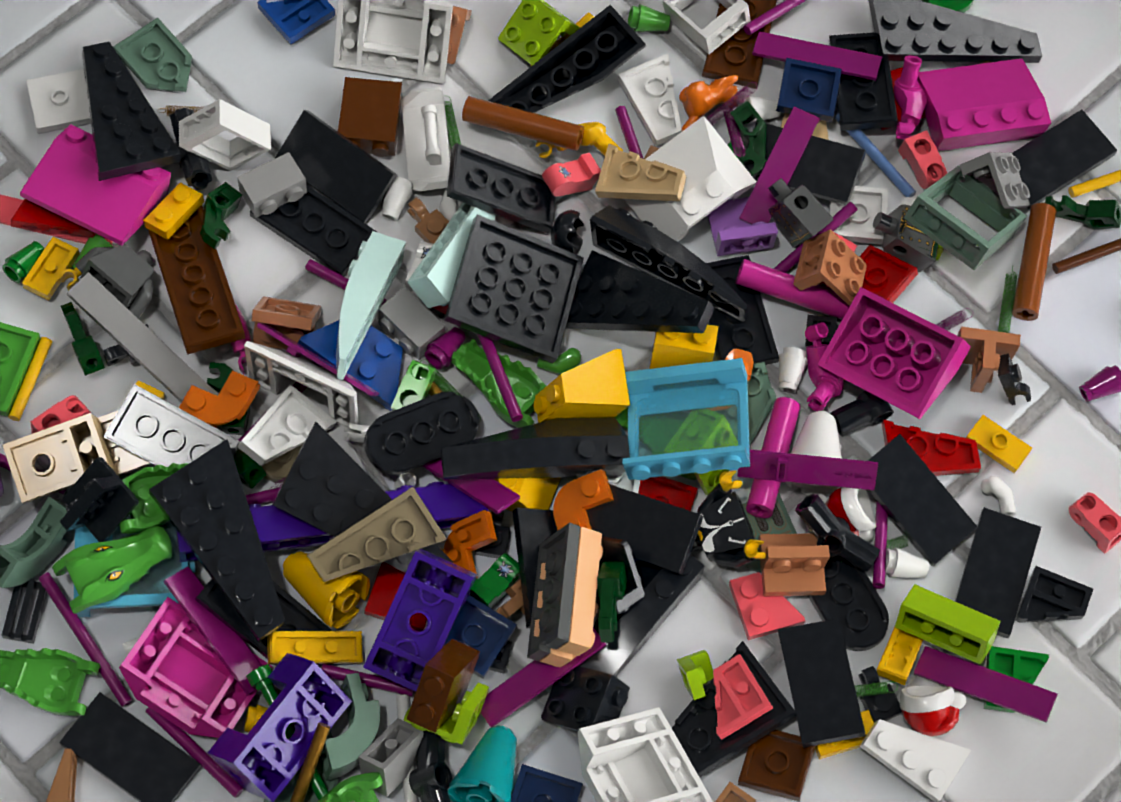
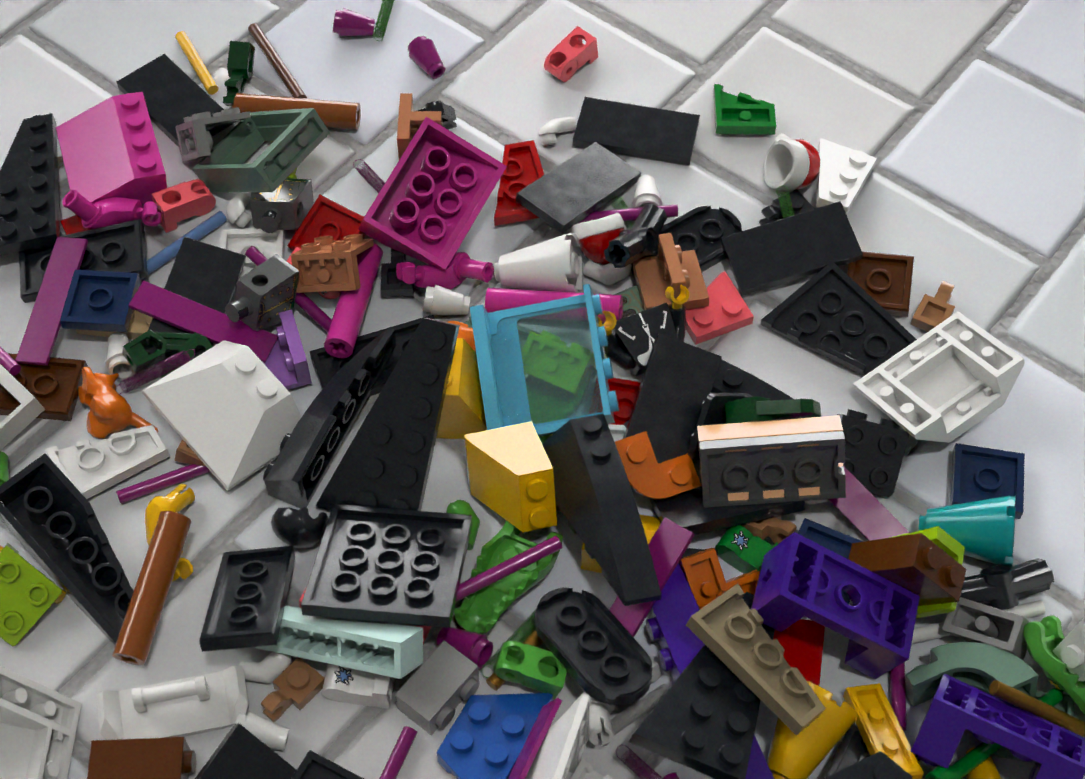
camera: 90 degrees left, 10 degrees down
(365, 291) = (423, 735): light aqua slope -> none
(449, 124) = (179, 669): bright green piece -> none
(572, 176) = (220, 528): coral leg -> none
(633, 177) = (229, 453): tan wing -> none
(696, 672) = (812, 355): lime bracket -> none
(728, 103) = (137, 404): magenta piece -> none
(737, 697) = (831, 308): coral wing -> none
(810, 470) = (576, 245): magenta piece -> none
(861, 412) = (487, 238): black piece -> none
(899, 656) = (738, 193): yellow plate -> none
(947, 624) = (708, 151): lime brick -> none
(986, 684) = (756, 127): magenta piece -> none
(999, 443) = (501, 131): yellow plate -> none
(1011, 306) = (354, 133): bright green piece -> none
(1053, 598) = (655, 85): black wing -> none

